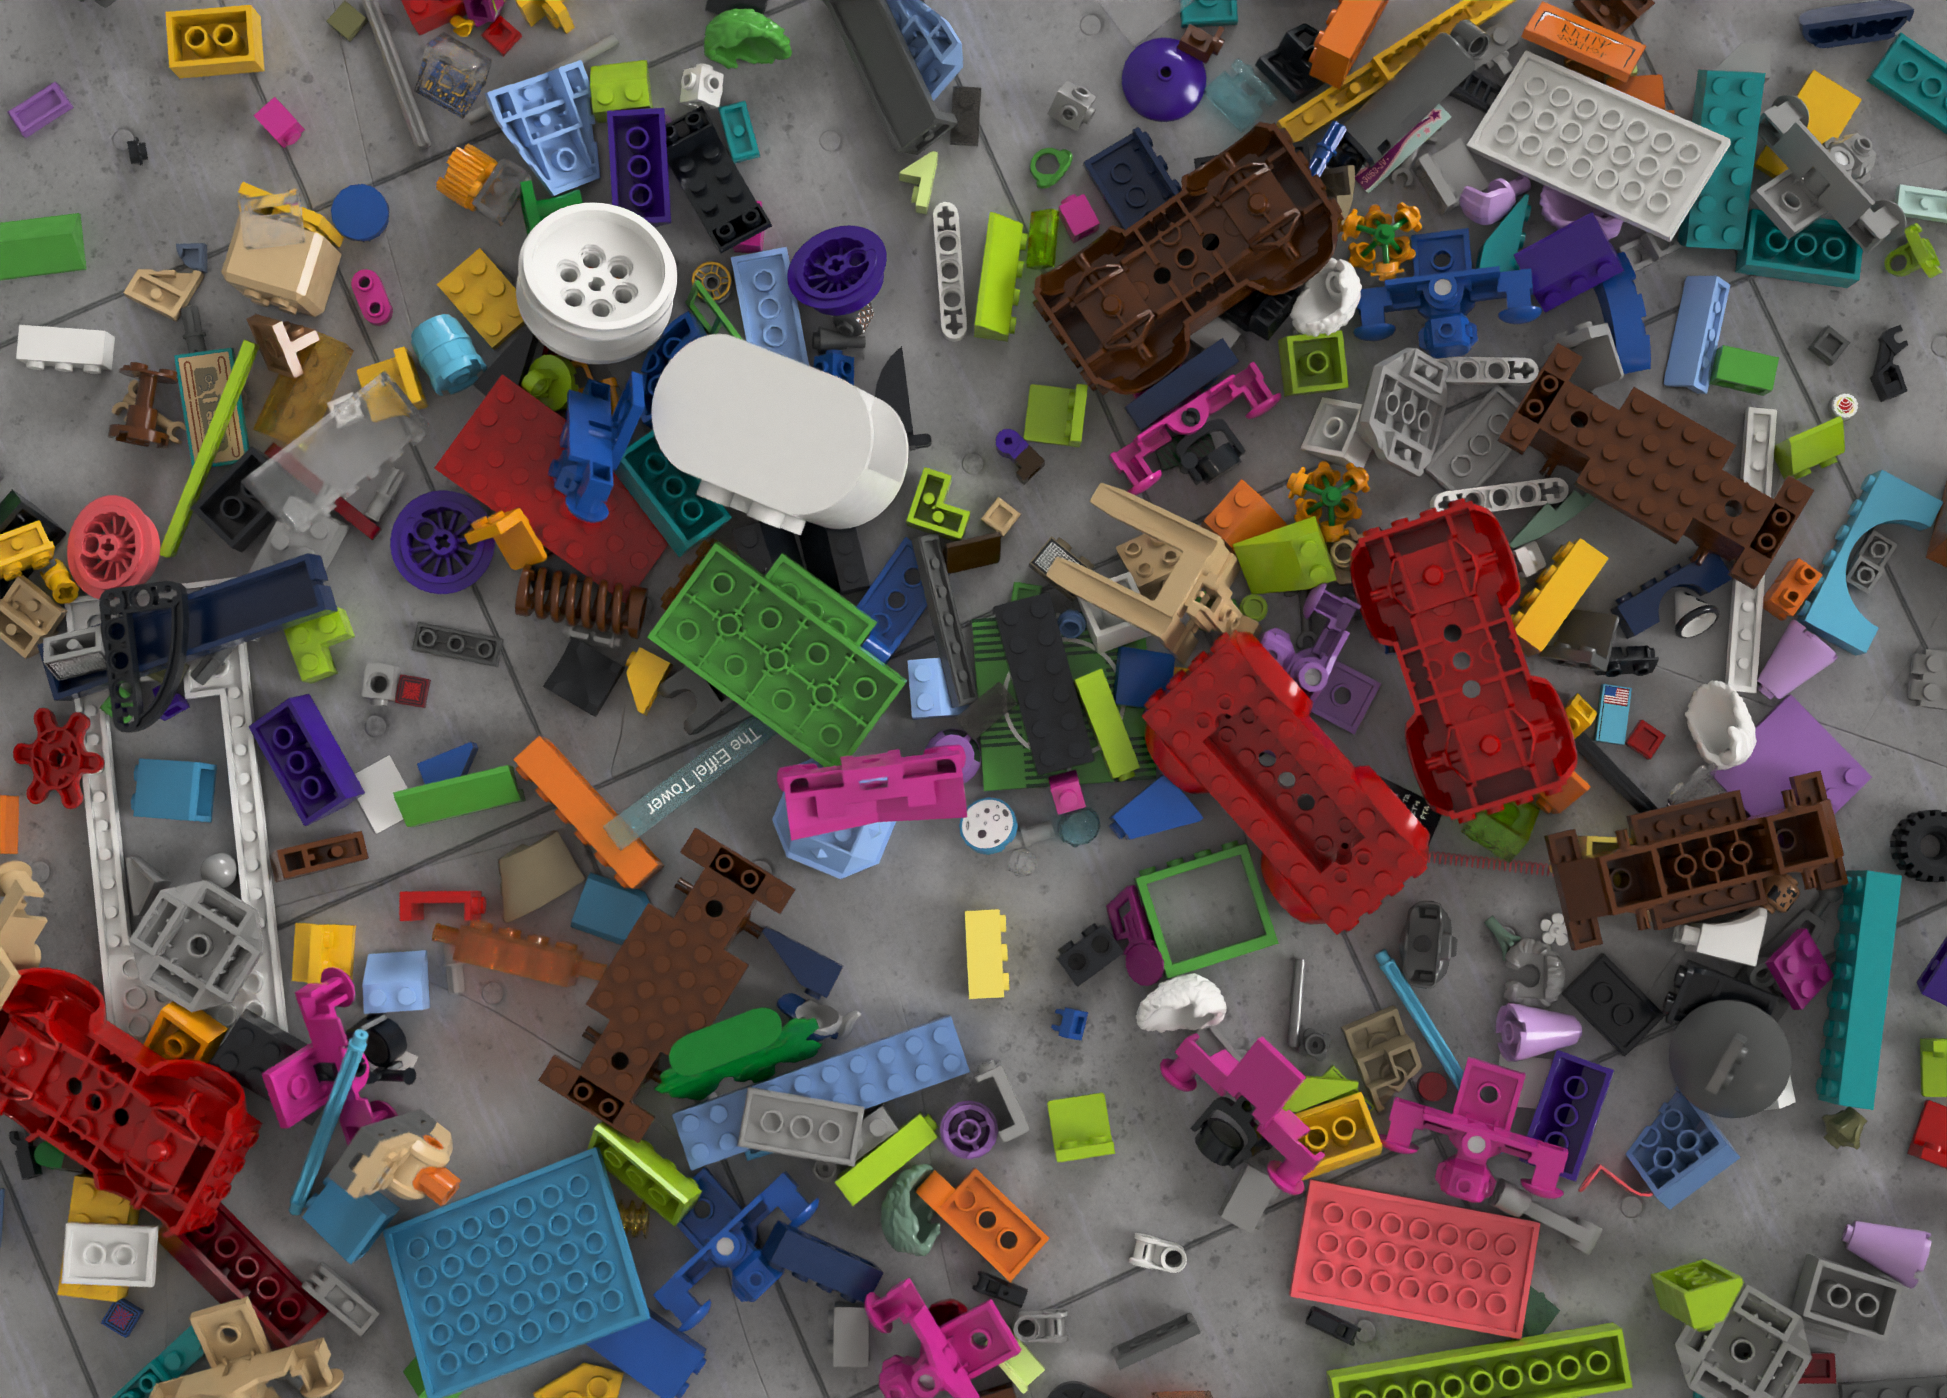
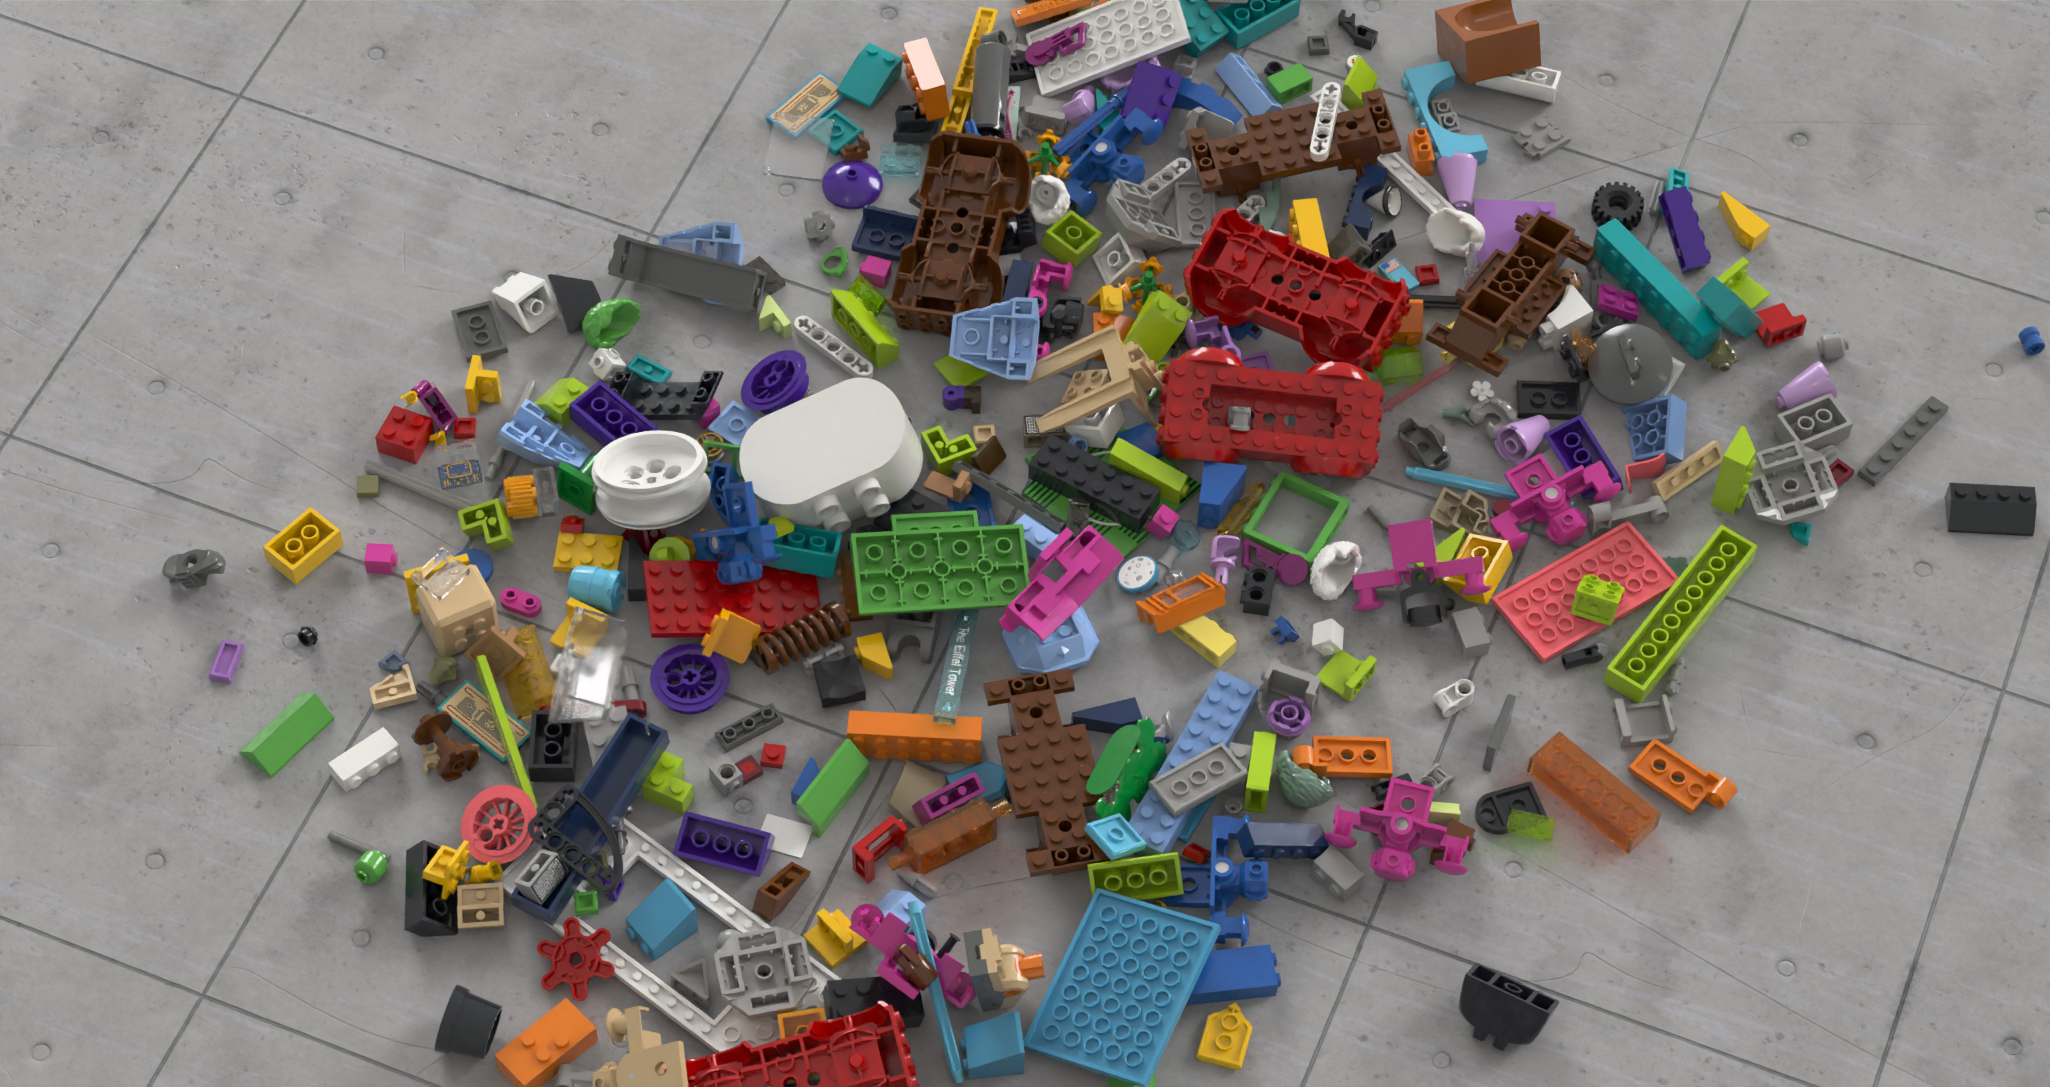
camera: 40 degrees left, 30 degrees down
(224, 313) = (443, 670): none -> olive rock
(311, 1098) = (919, 970): none -> reddish brown piece
(415, 181) = (489, 519): none -> lime brick
(450, 698) = (773, 756): none -> red plate
(497, 253) = (572, 524): none -> red plate
(550, 916) = (948, 798): none -> magenta brick
(652, 1121) = (1115, 836): none -> medium azure tile
(661, 465) = (782, 526): none -> neon yellow tile
(740, 1185) = (1196, 853): none -> red tile
(895, 551) = (949, 487): none -> medium nougat bracket
(993, 903) = (1181, 602): none -> orange door
(1083, 886) = (1222, 547): none -> lavender piece
(1096, 436) = (999, 338): none -> light blue wedge
(1100, 1074) = (1327, 637): none -> white brick
(1161, 847) = (1241, 510): none -> clear yellow plate
(1243, 763) = (1239, 417): none -> light grey piece
(1271, 481) = (1108, 299): none -> yellow bracket
(1411, 1288) = (1597, 599): none -> lime bracket
(1475, 236) = (1091, 122): none -> blue axle
(1518, 92) = (1042, 51): none -> magenta piece
(1664, 1223) = (1688, 470): none -> tan plate
(1703, 992) = (1582, 344): none -> clear orange brick
(1717, 471) = (1326, 129): none -> white beam
(1753, 336) = (1272, 68): none -> black plate
(1902, 1097) = (1728, 308): none -> teal brick

